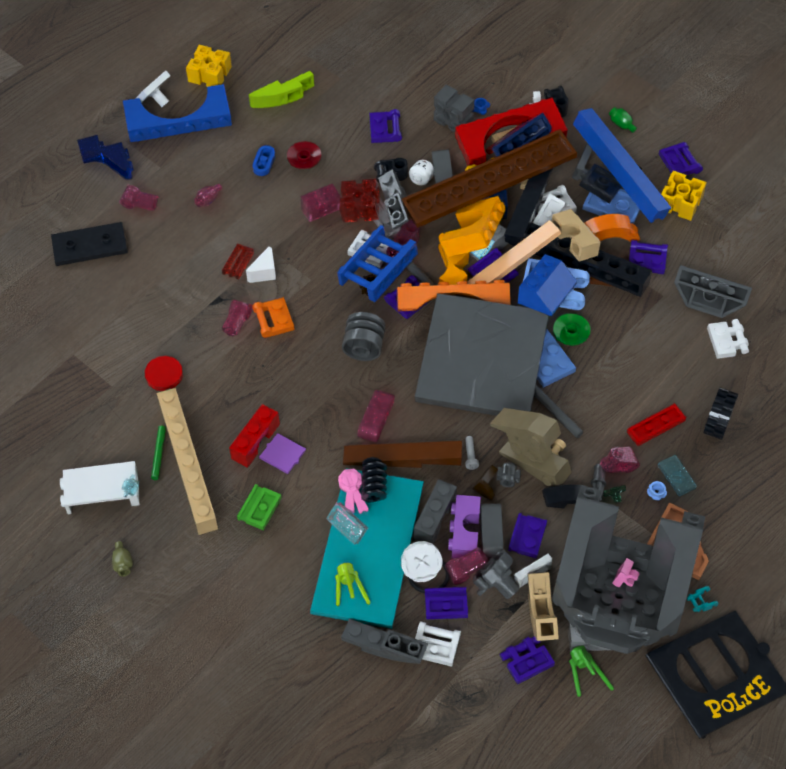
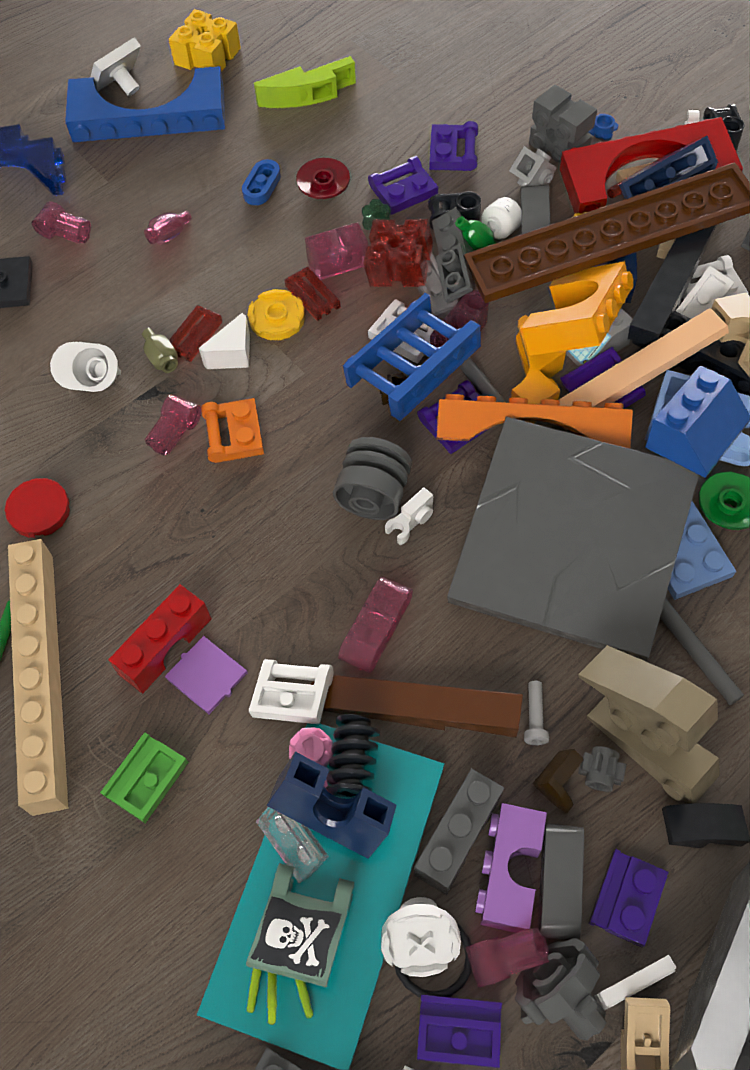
camera: 10 degrees right, 5 degrees up
(177, 287) = (84, 366): none -> white piece
(219, 274) = (160, 351): none -> olive plant
(288, 245) = (276, 315): none -> yellow tile
(301, 229) = (316, 312): none -> clear red tile
(328, 458) = (291, 700): none -> white plate
(341, 175) = (375, 211): none -> clear green plant
(358, 159) = (406, 191): none -> dark purple plate
(359, 561) = (300, 932): none -> flag
(379, 510) = (353, 822): none -> dark blue arch
(390, 353) = (412, 513): none -> white plate
(407, 184) = (476, 233): none -> green plant
(438, 139) = (533, 168): none -> light grey brick

